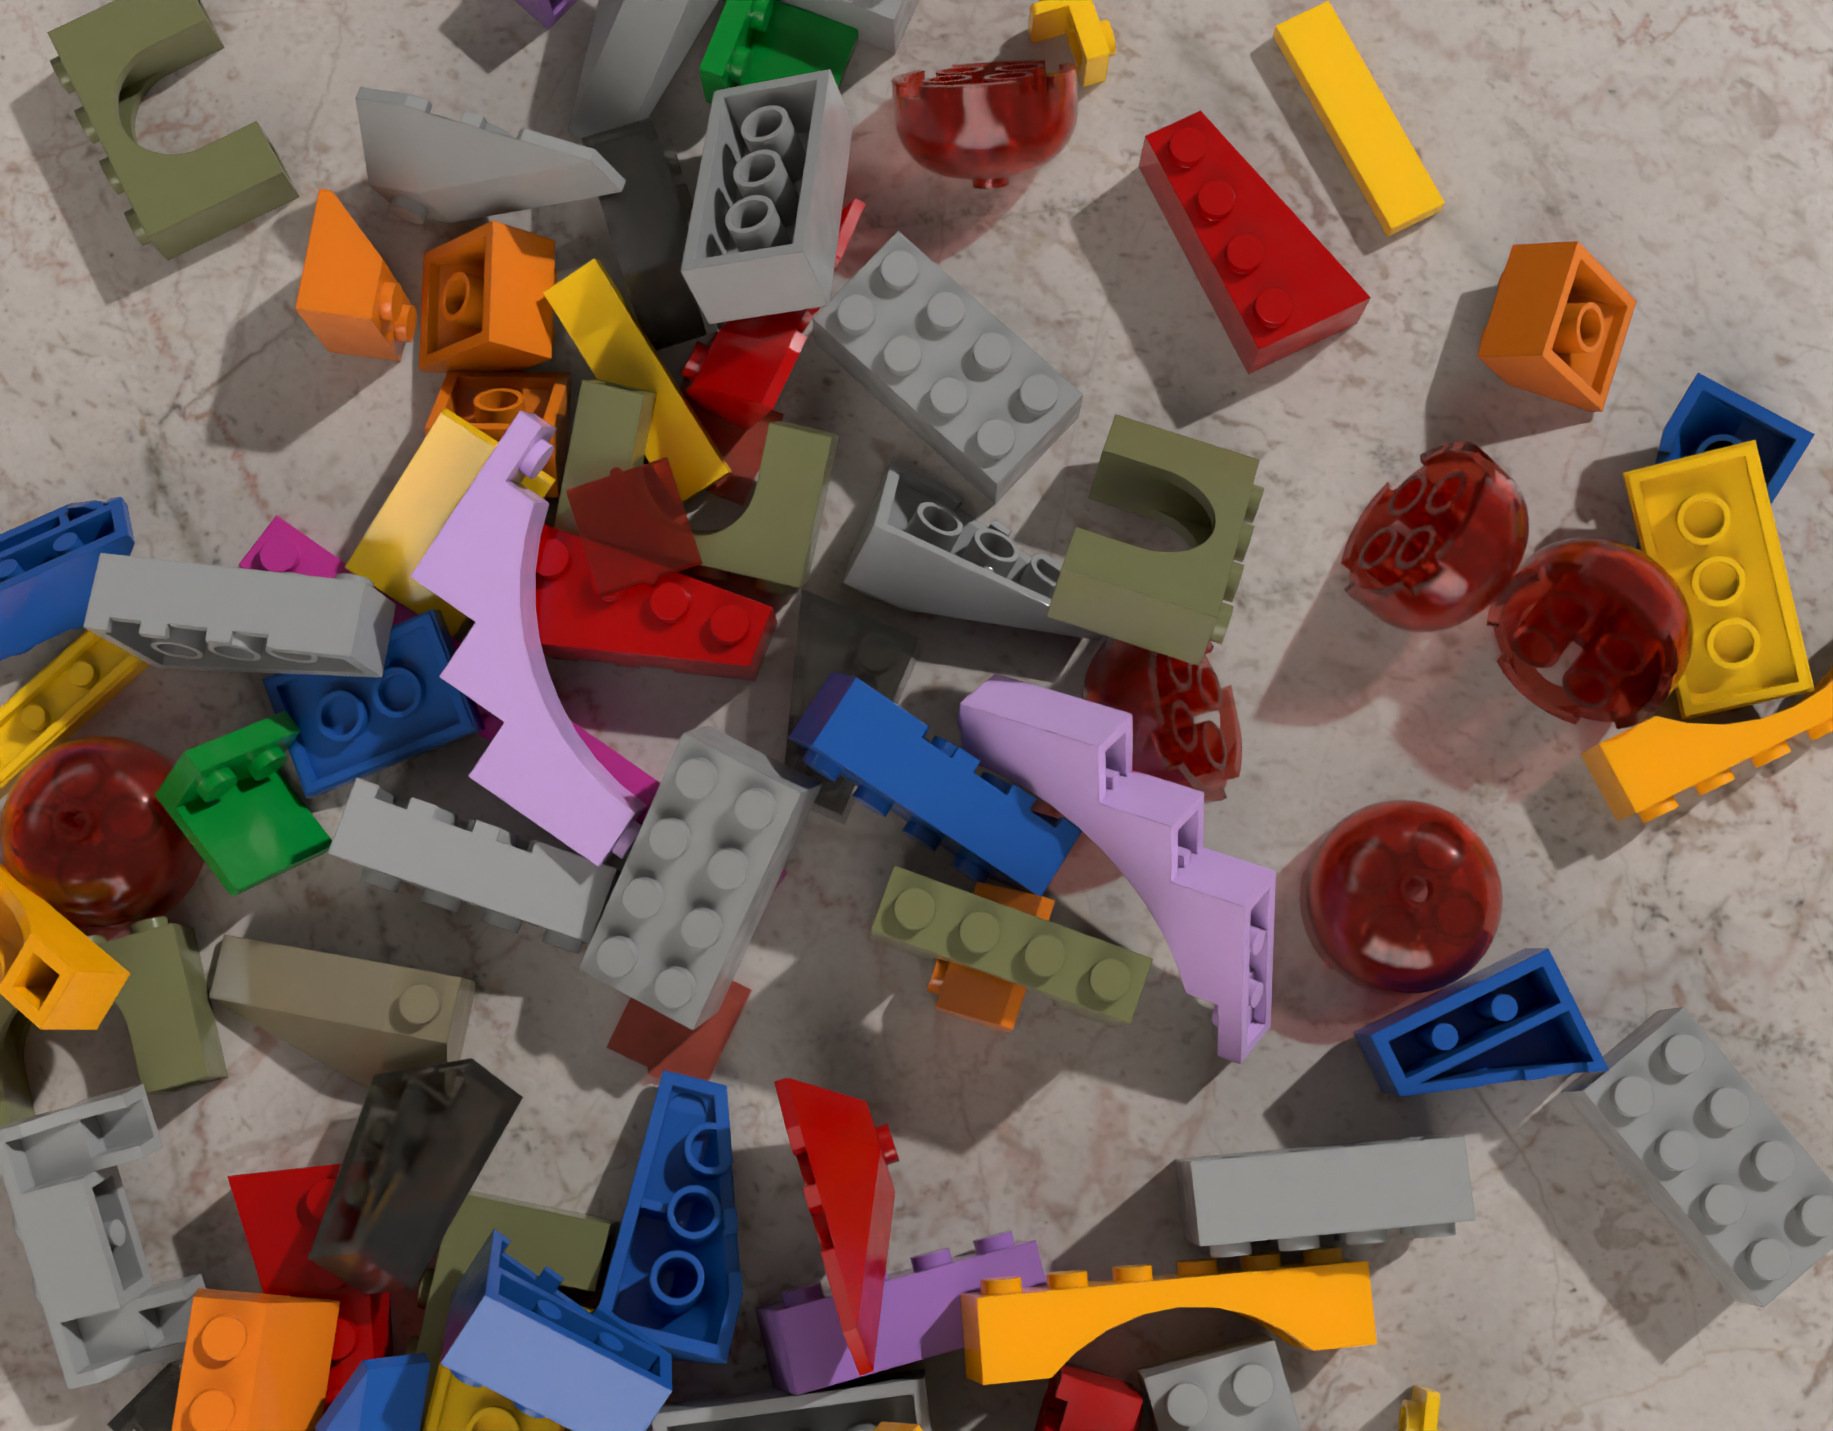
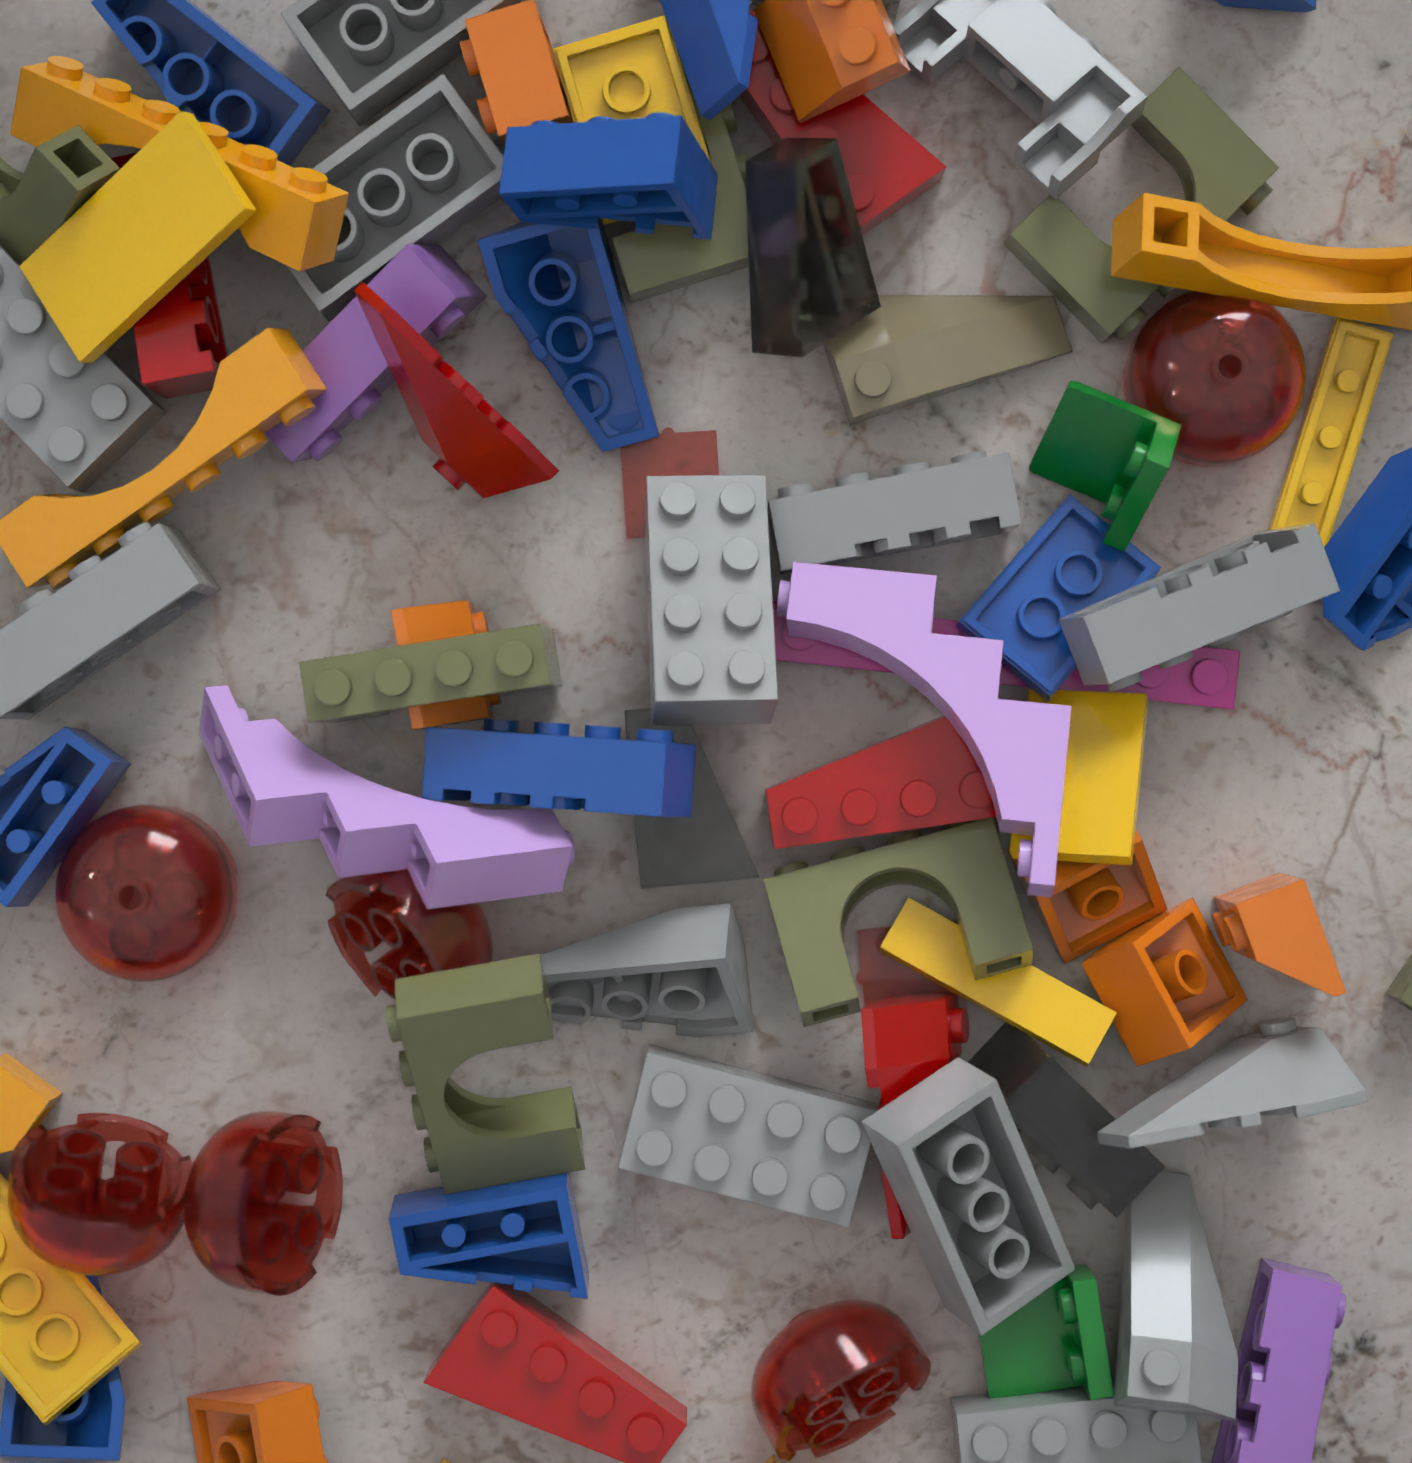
camera: 155 degrees right, 10 degrees up
(633, 527) = (922, 852): clear red piece -> none
(1235, 399) = (495, 1234): none -> blue wedge

